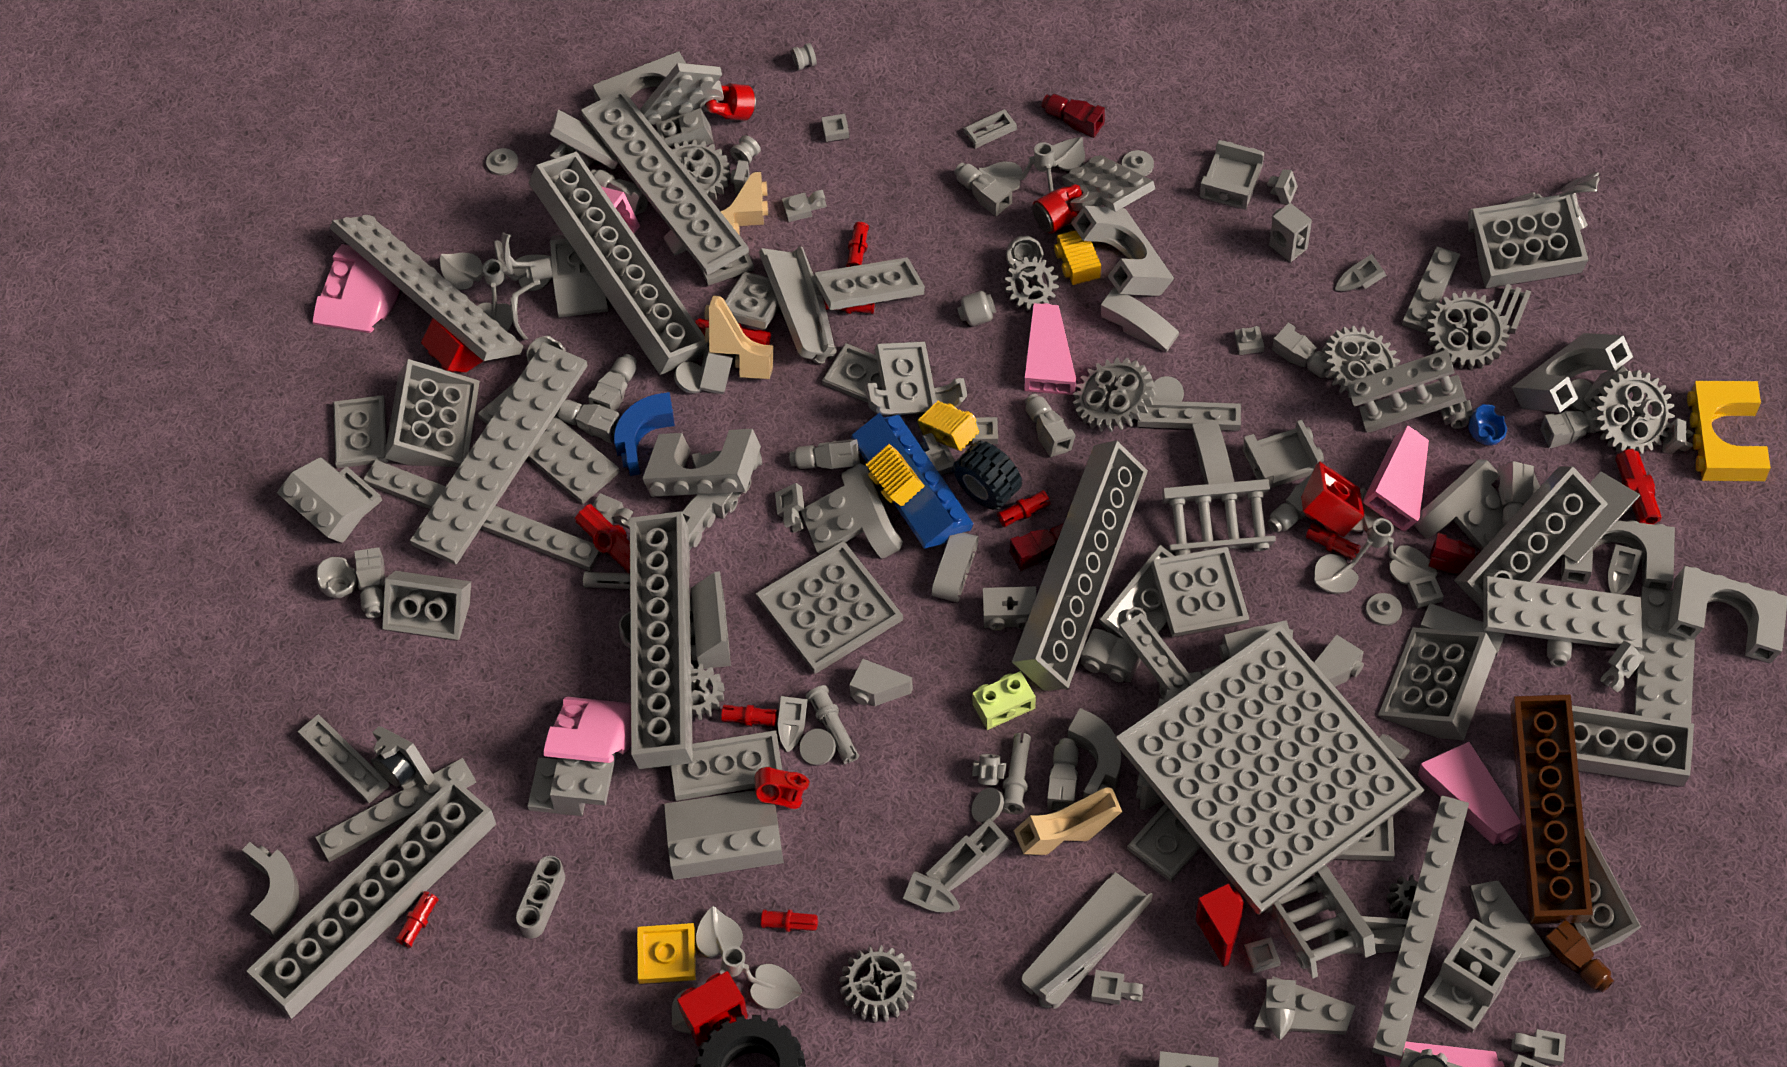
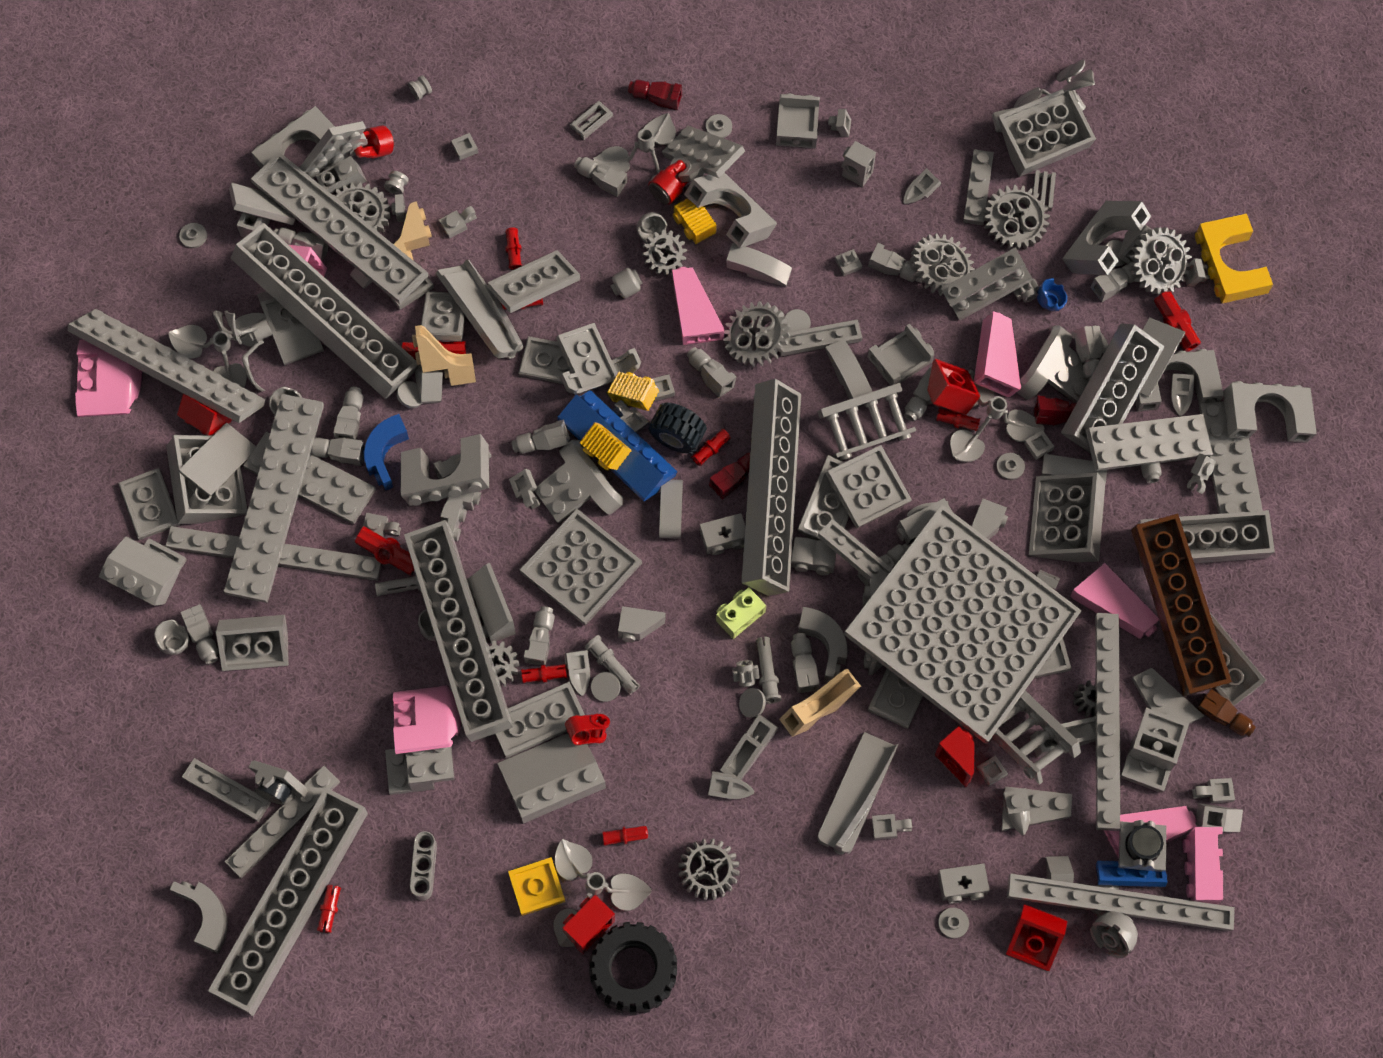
camera: 20 degrees left, 10 degrees up
(450, 398) = (217, 459): none -> light grey window
(756, 674) = (539, 638): none -> light grey piece

